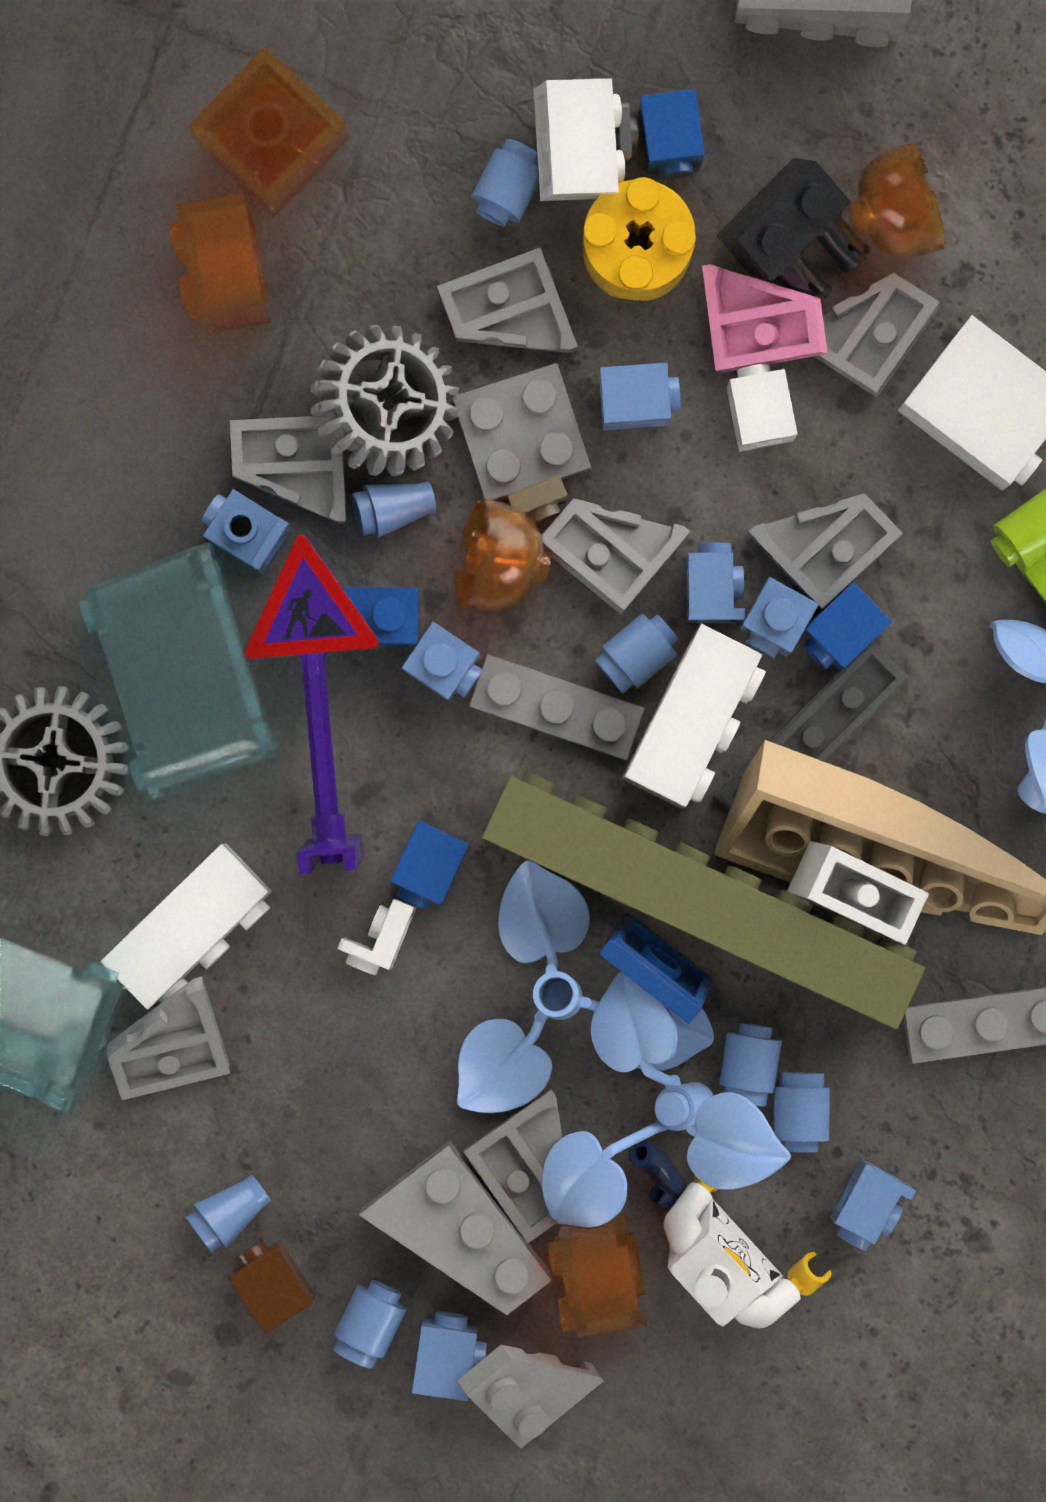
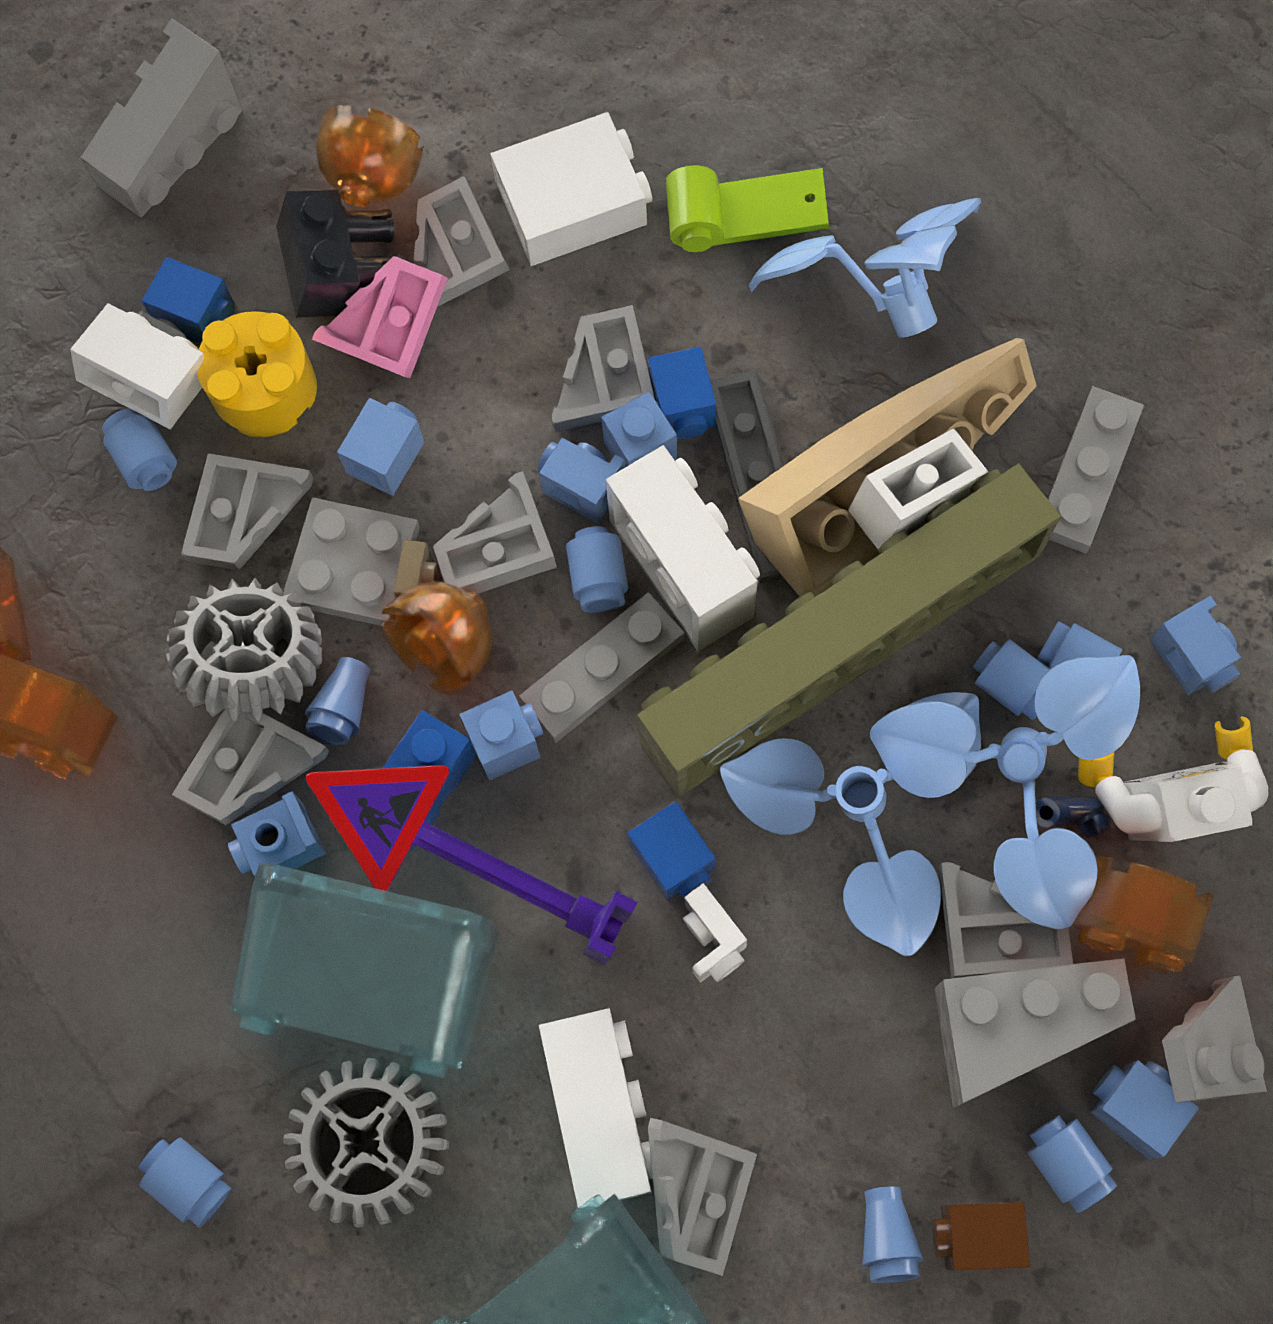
camera: 55 degrees left, 15 degrees down
(657, 967) = (885, 700): blue tile -> none
(761, 407) = (458, 358): white brick -> none

